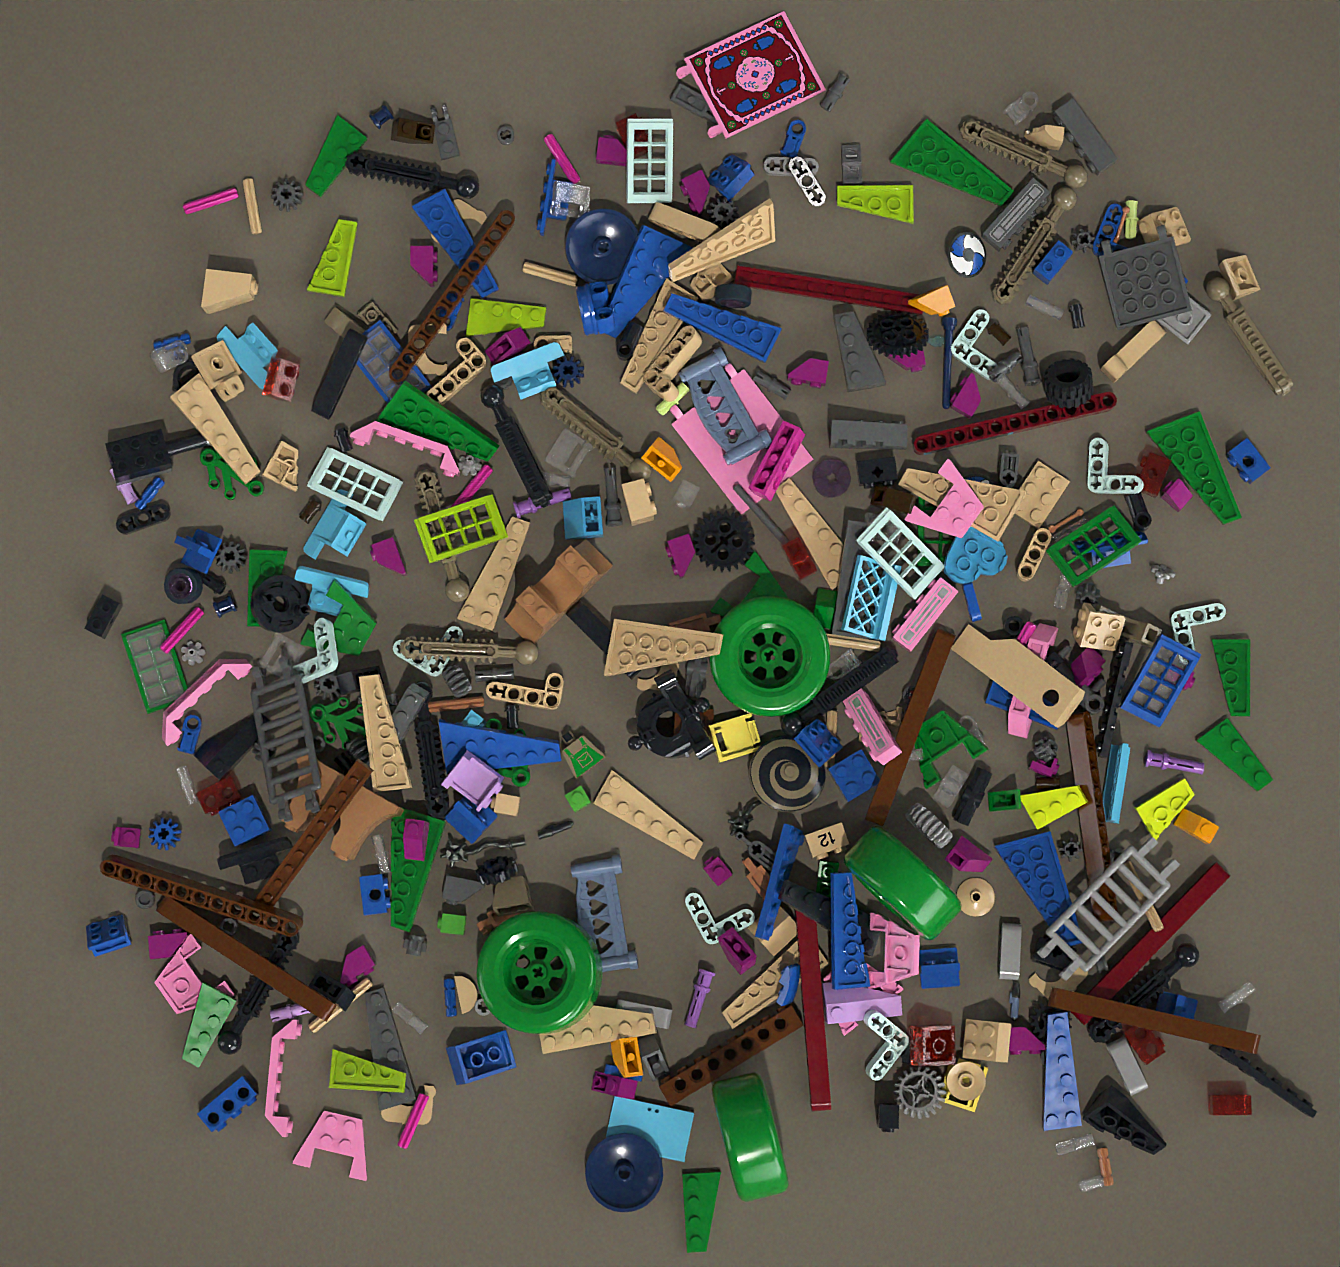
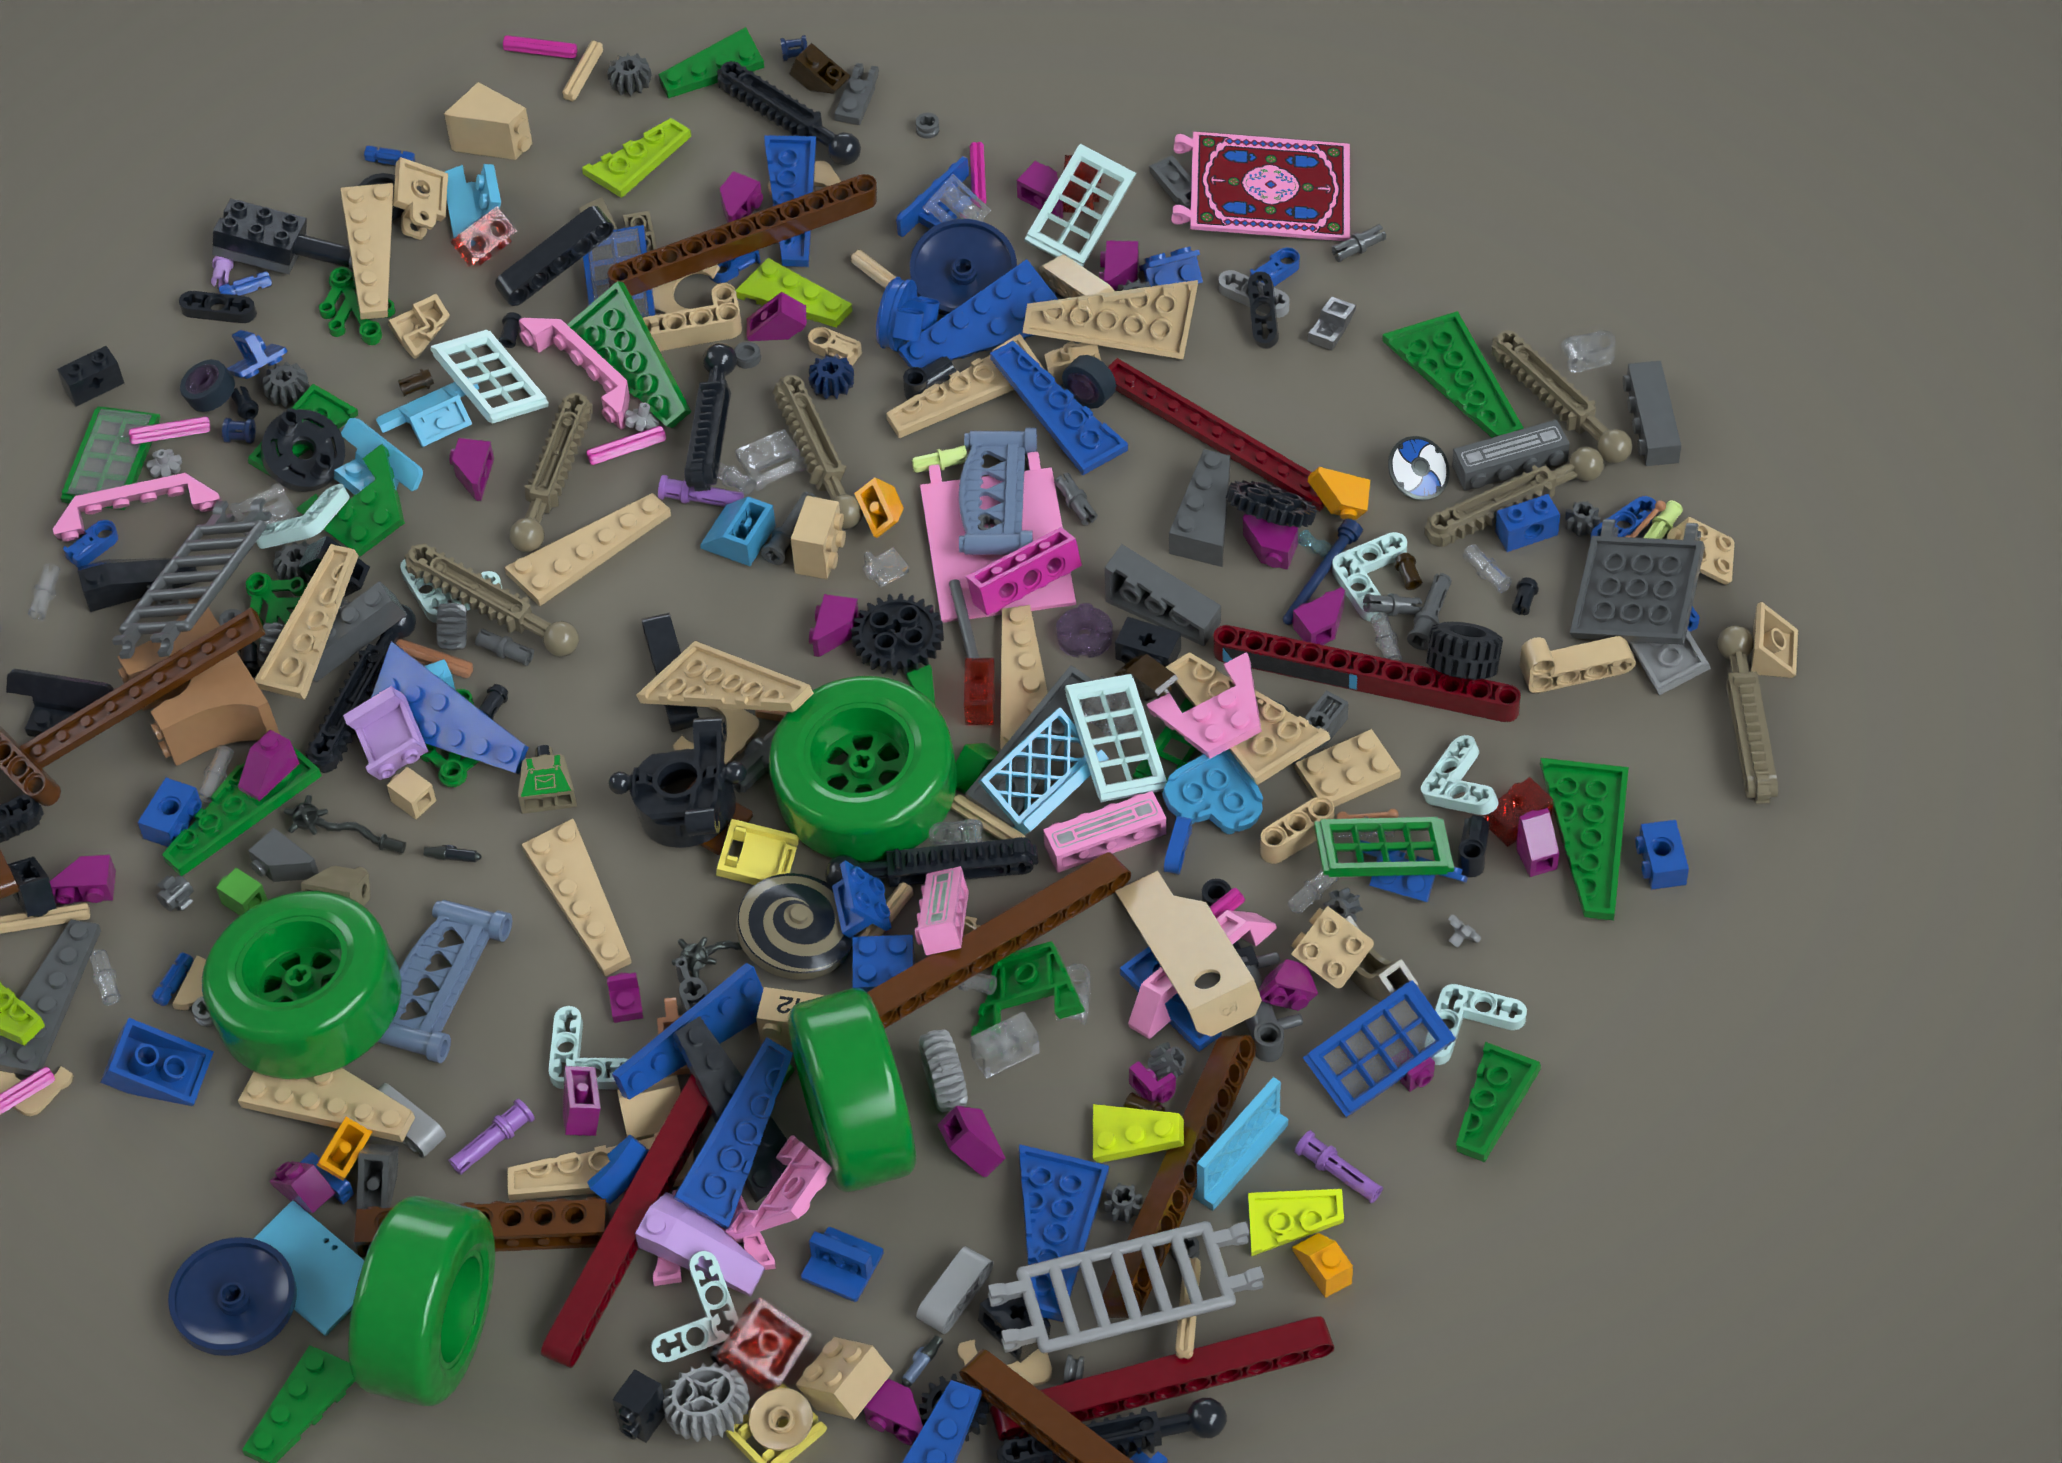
camera: 30 degrees right, 30 degrees down
(168, 356) = (372, 161): clear piece -> none
(217, 790) = (71, 618): clear red brick -> none
(245, 821) = (81, 652): blue brick -> none
(427, 539) = (527, 454): lime piece -> none
(468, 820) = (353, 788): blue bracket -> none
(496, 870) = (340, 851): black gear -> none
(525, 691) = (547, 700): tan beam -> none
(529, 369) = (785, 351): medium azure plate -> none
(558, 591) = (671, 578): medium nougat piece -> none
(577, 799) = (505, 827): bright green brick -> none
(670, 362) = (976, 413): tan beam -> none
(810, 372) = (1133, 504): magenta slope -> none
(880, 200) = (1345, 371): lime wing -> none
(965, 895) = (954, 1215): tan dish -> none
(972, 796) = (1028, 1073): black piece -> none
(1004, 800) = (1072, 1100): green slope -> none
(1046, 136) = (1604, 386): tan slope -> none
(1107, 728) = (1319, 1027): black wing -> none
(1231, 749) = (1435, 1200): green wing -> none

